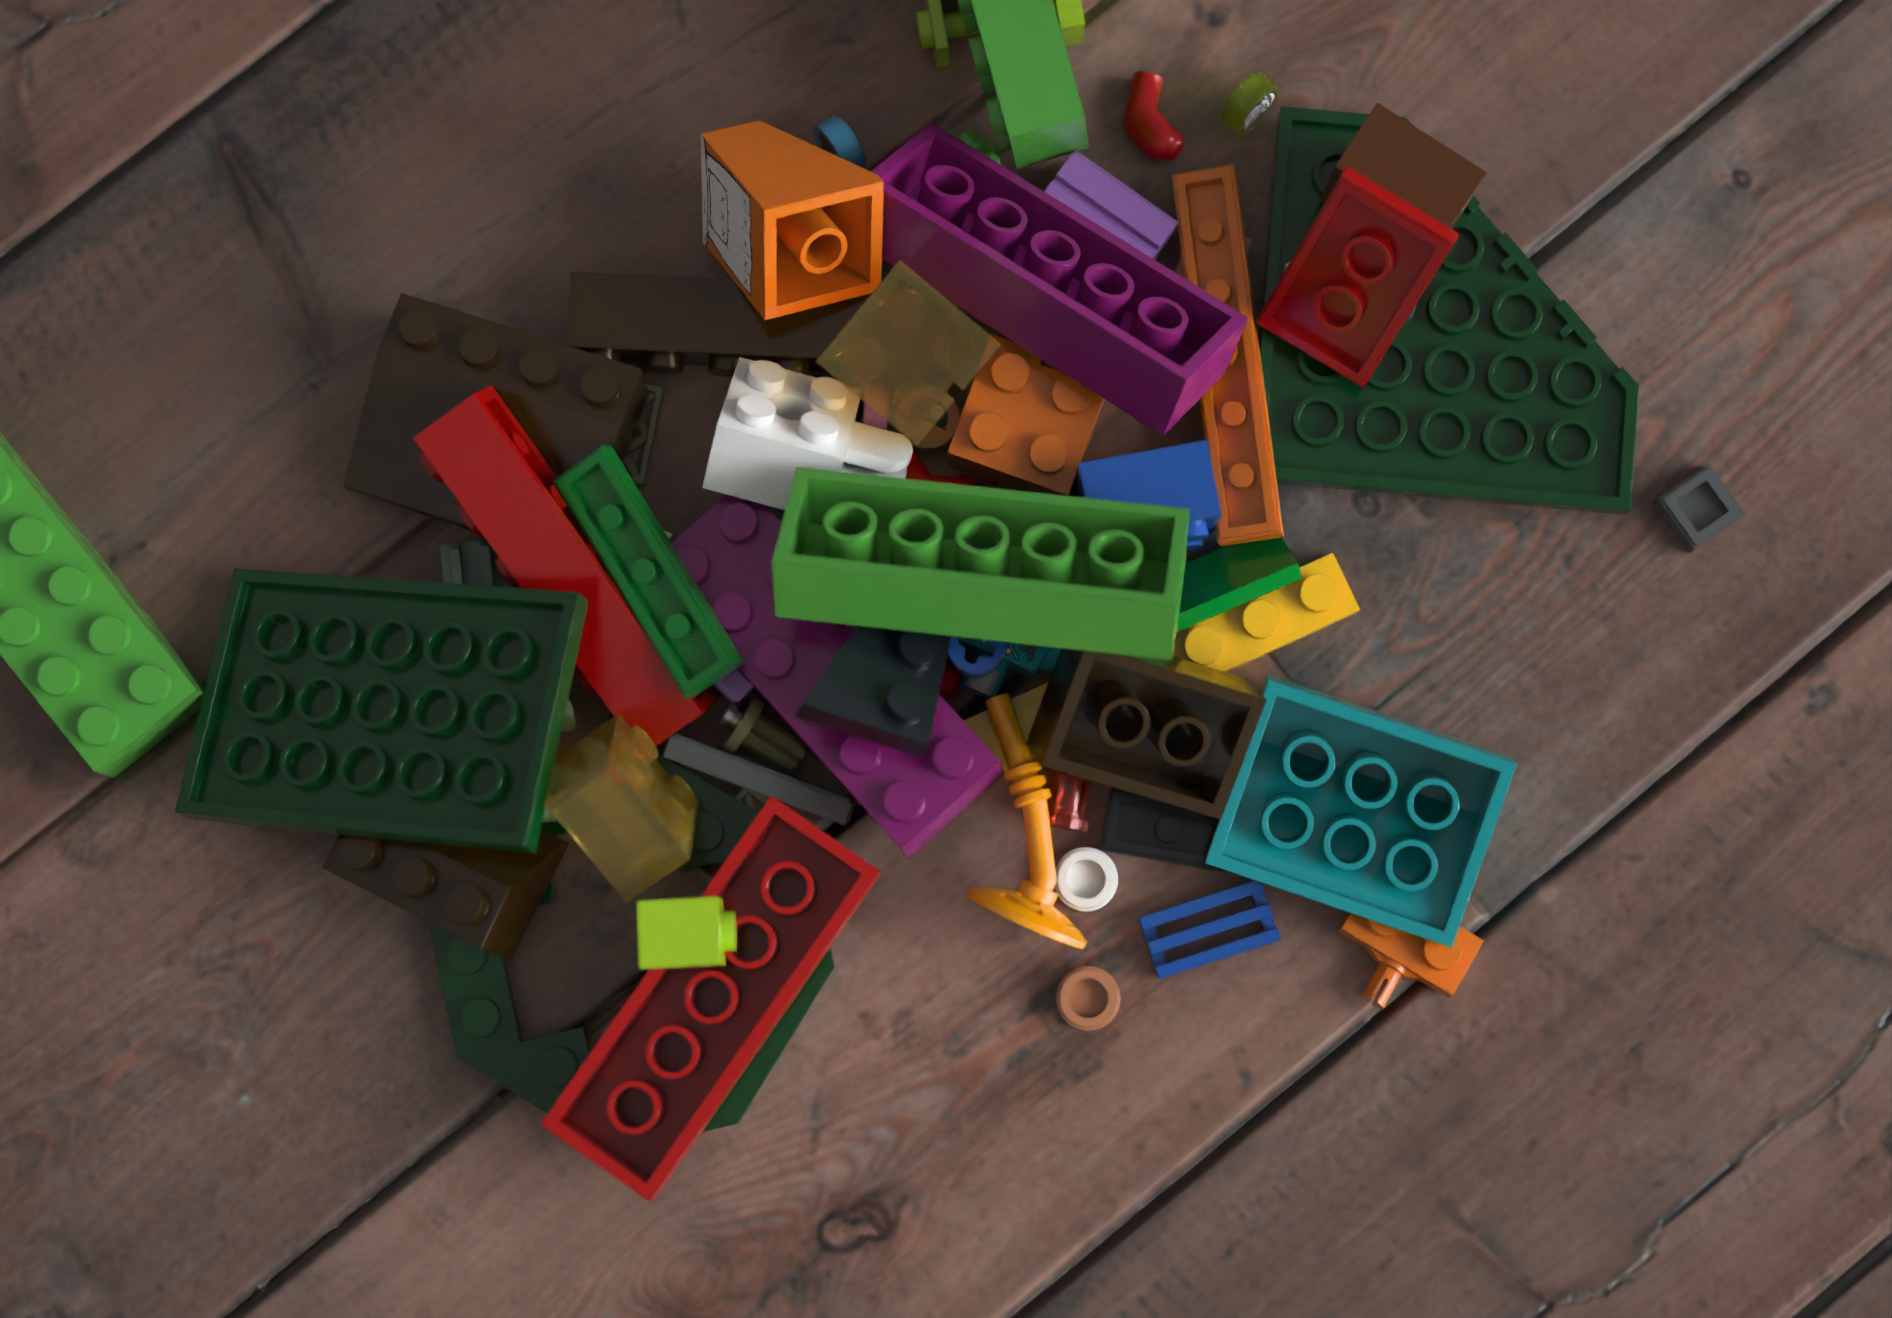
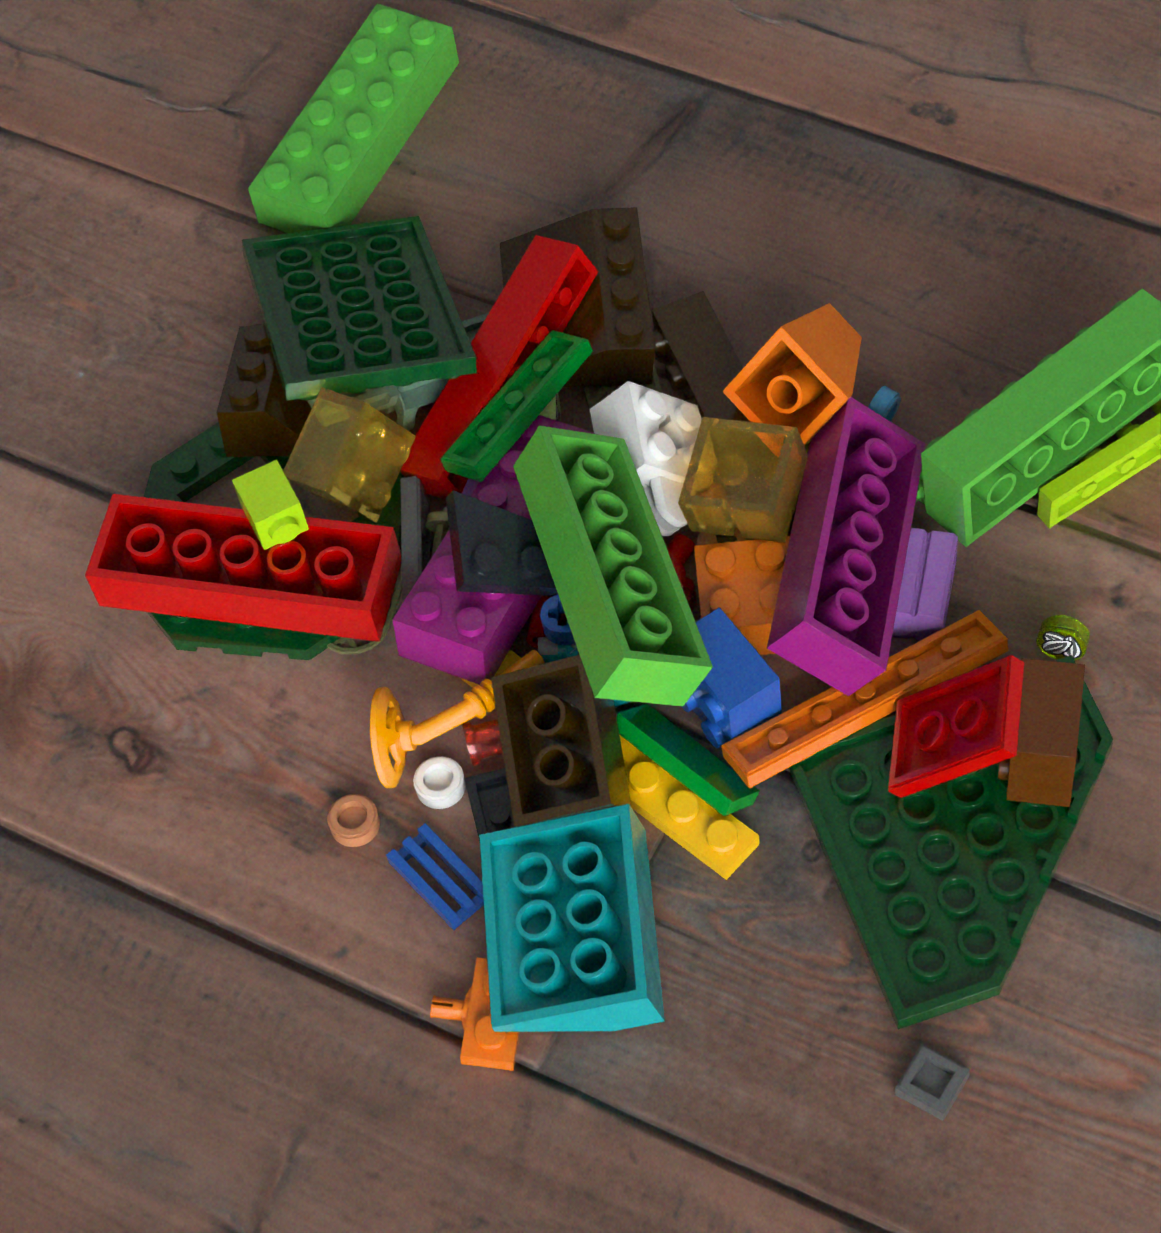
camera: 75 degrees right, 25 degrees down
(1146, 124) = (1014, 580): red arm -> none

